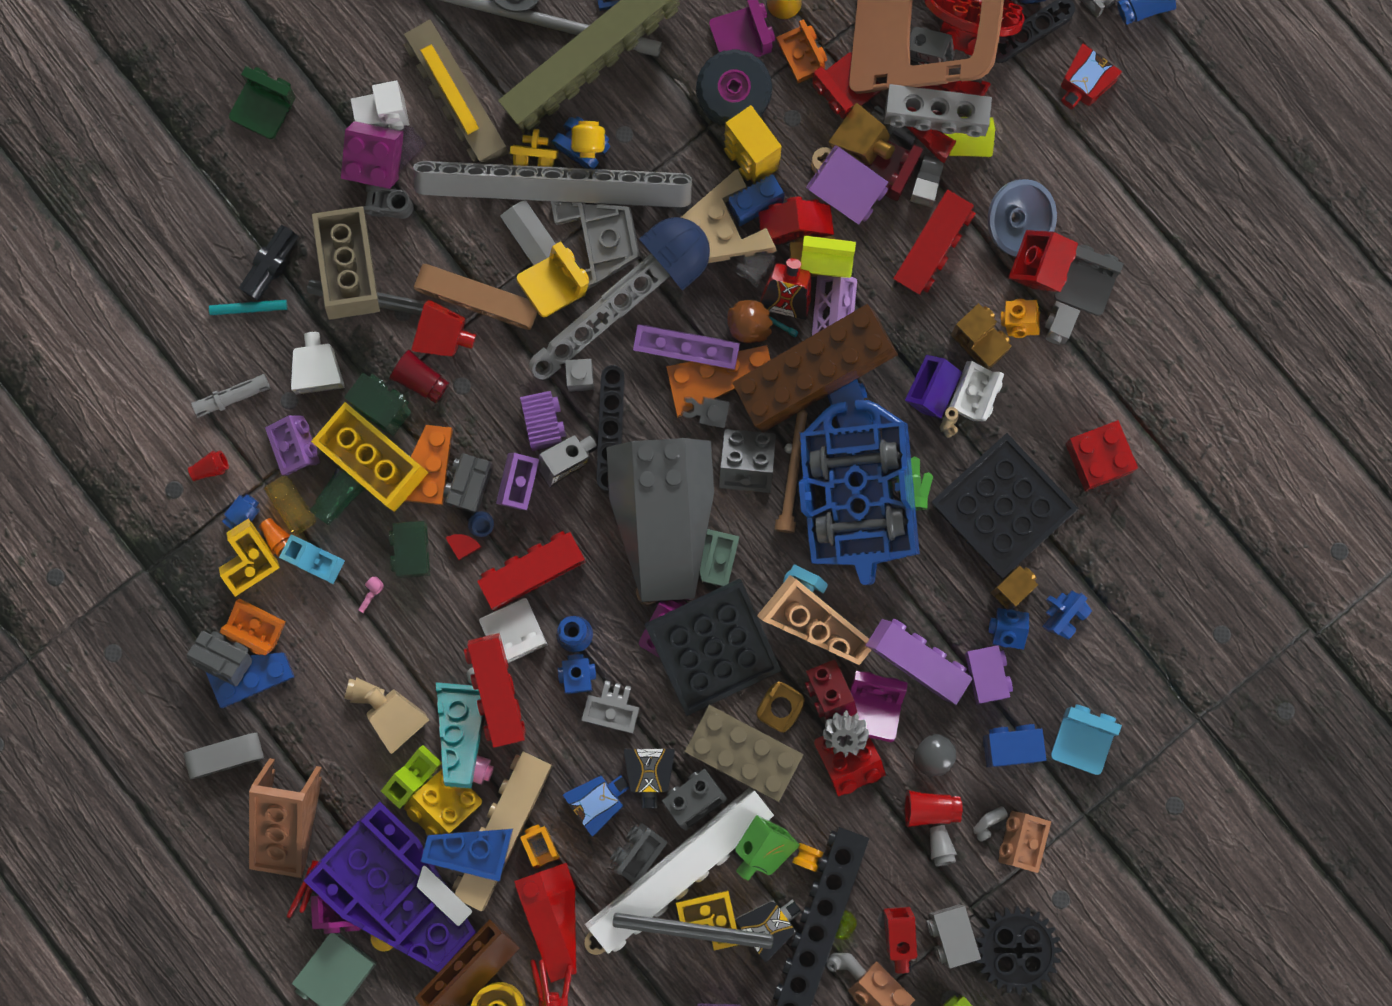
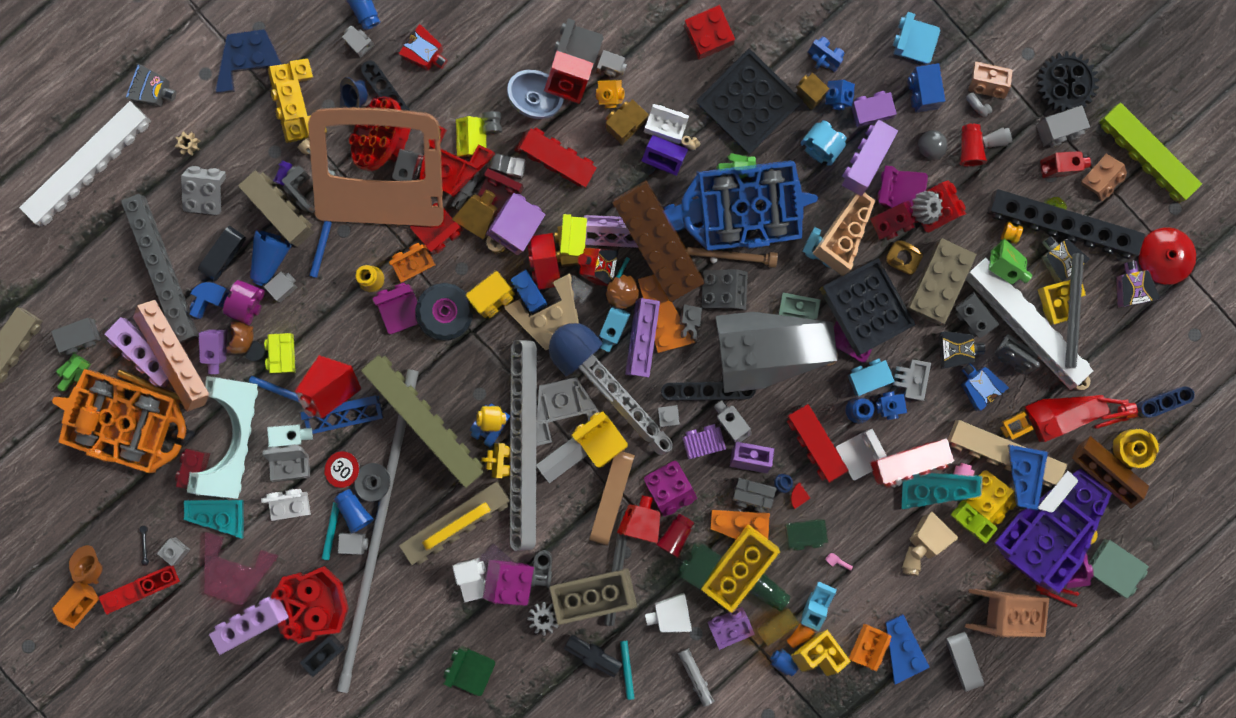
camera: 90 degrees left, 5 degrees up
(211, 465) = (749, 687): red cone -> none
(219, 657) = (895, 669): dark grey brick -> none
(320, 192) = (541, 611): none -> light grey gear
(483, 373) = (670, 488): none -> magenta bracket
(616, 648) = (870, 378): none -> medium azure brick
(703, 308) = (617, 320): none -> medium azure torso
(845, 961) = (1082, 202): light grey arm -> none
(942, 601) = (824, 142): none -> medium azure brick
(948, 103) = (455, 128): light grey brick -> none
(986, 163) = (492, 122): none -> dark grey wheel

